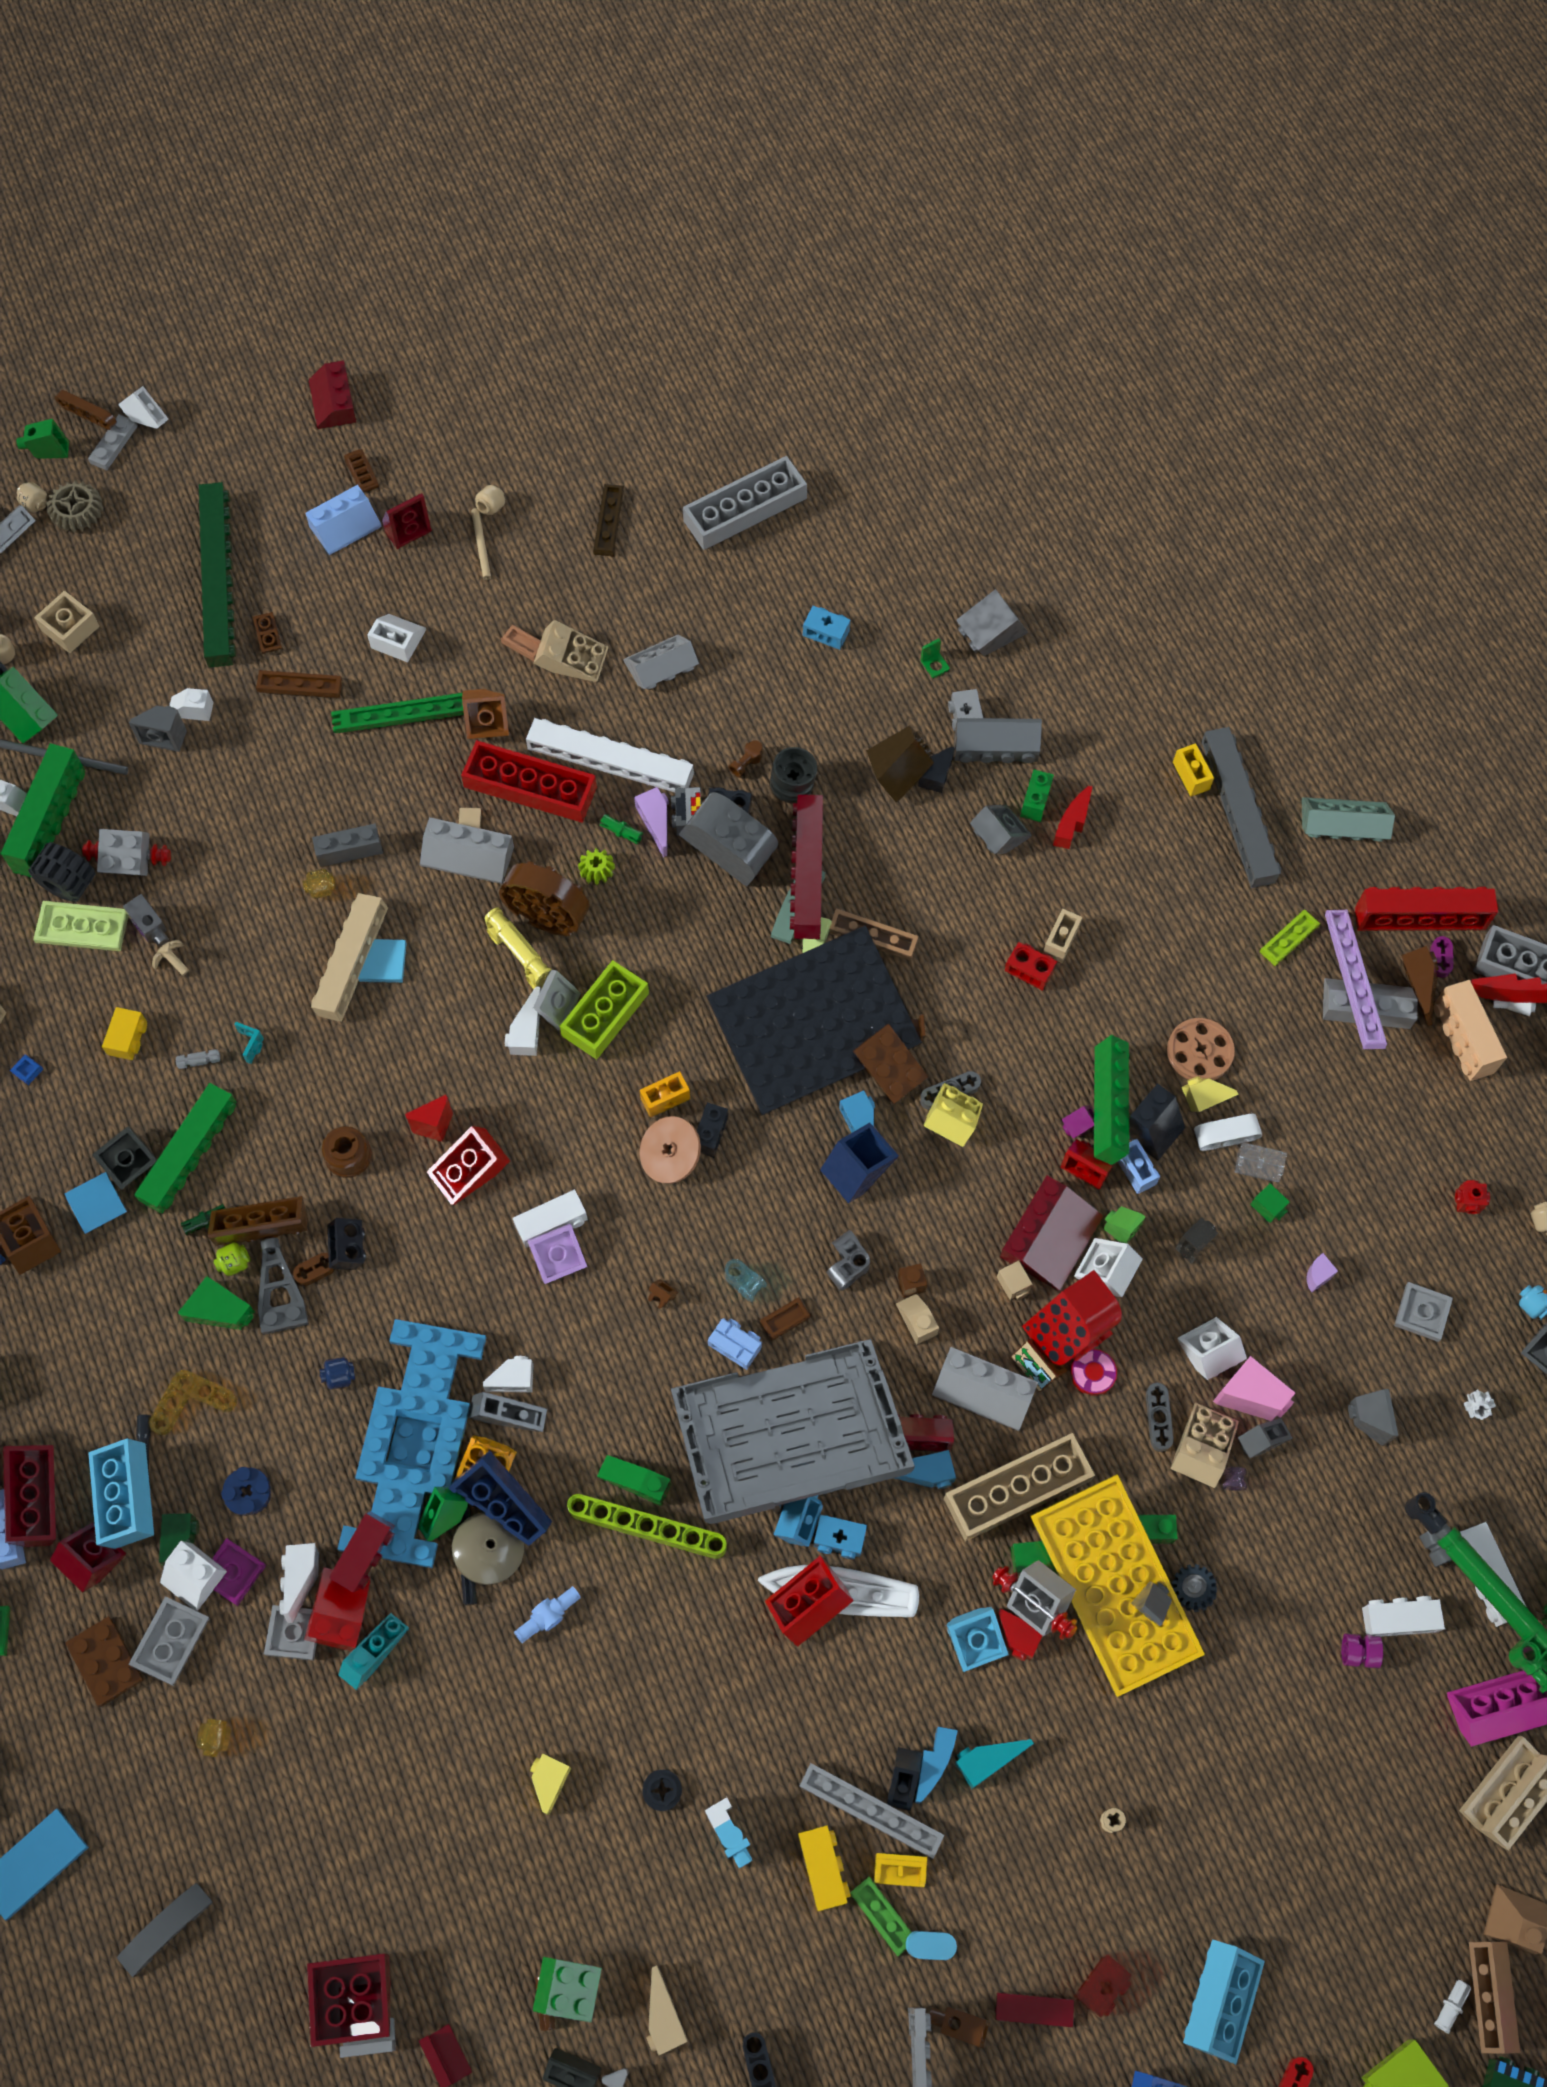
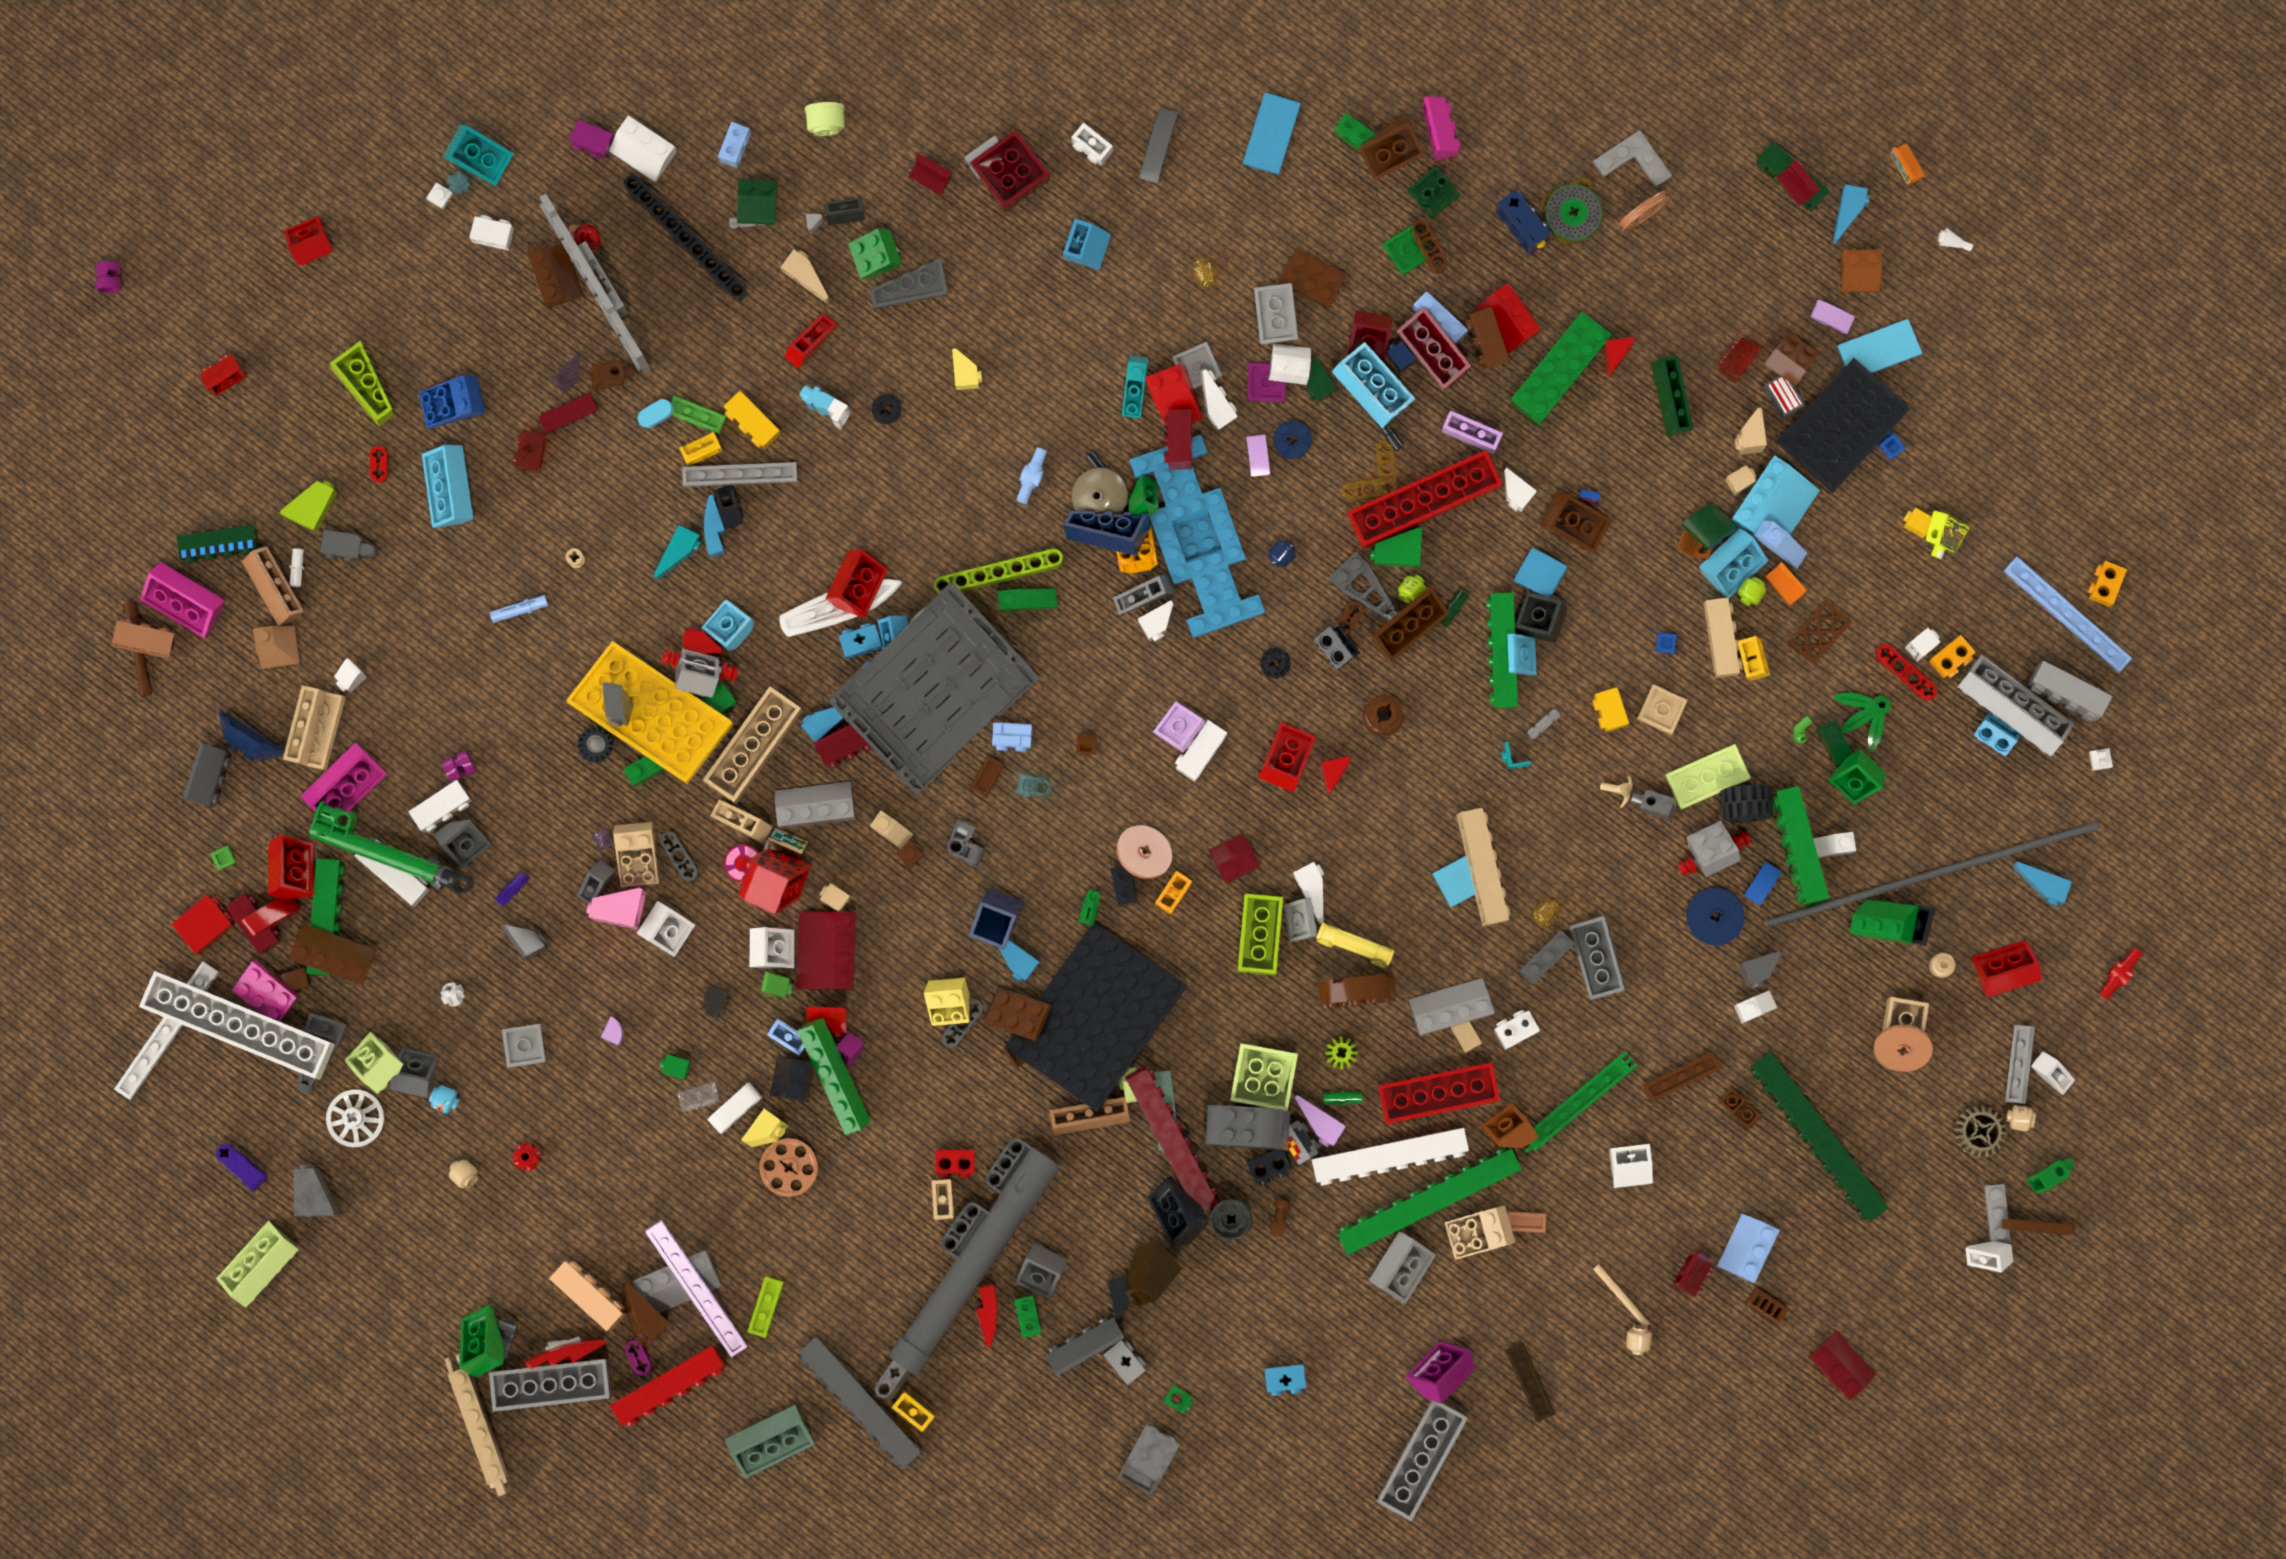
camera: 155 degrees right, 15 degrees up
(57, 1384) = (1472, 432): none -> lavender brick
(58, 1299) = (1517, 491): none -> white slope
(72, 1513) = (1400, 356): none -> dark blue brick
(77, 1010) = (1662, 709): none -> tan tile
(86, 597) = (1889, 1048): none -> nougat piece
(99, 805) = (1763, 883): none -> blue slope
(155, 1342) = (1424, 499): none -> red brick
(169, 1130) = (1522, 654): none -> medium azure tile
(177, 812) = (1728, 924): none -> dark blue piece
(237, 1974) = (1091, 144): none -> white brick
(293, 1494) = (1258, 455): none -> lavender slope
(300, 821) = (1597, 958): none -> dark grey slope
(321, 1852) = (1086, 244): none -> dark azure slope
(419, 799) = (1516, 1030): none -> white brick
(425, 1274) = (1271, 671): none -> black gear
(543, 1923) = (913, 286): none -> dark grey wing
(584, 1096) = (1234, 859): none -> dark red slope
(602, 700) = (1428, 1202): none -> green brick
(682, 556) = (1441, 1371): none -> magenta slope
(685, 880) = (1263, 1077): none -> yellowish green slope
(702, 1927) = (810, 340): none -> red slope
(758, 1128) = (1091, 902): none -> green hinge
(842, 805) = (1177, 1213): none -> black slope
(1011, 2059) = (567, 376): none -> slope
(1058, 872) = (975, 1253): none -> dark grey piece
(1073, 1414) = (741, 821): none -> tan slope
(1195, 1796) = (526, 606): none -> light blue pin
(1361, 1483) = (511, 889): none -> dark purple axle
(1381, 1997) = (345, 546): none -> dark grey hinge
(1397, 1564) = (462, 841): none -> dark grey slope
(1444, 1830) = (349, 676): none -> white slope

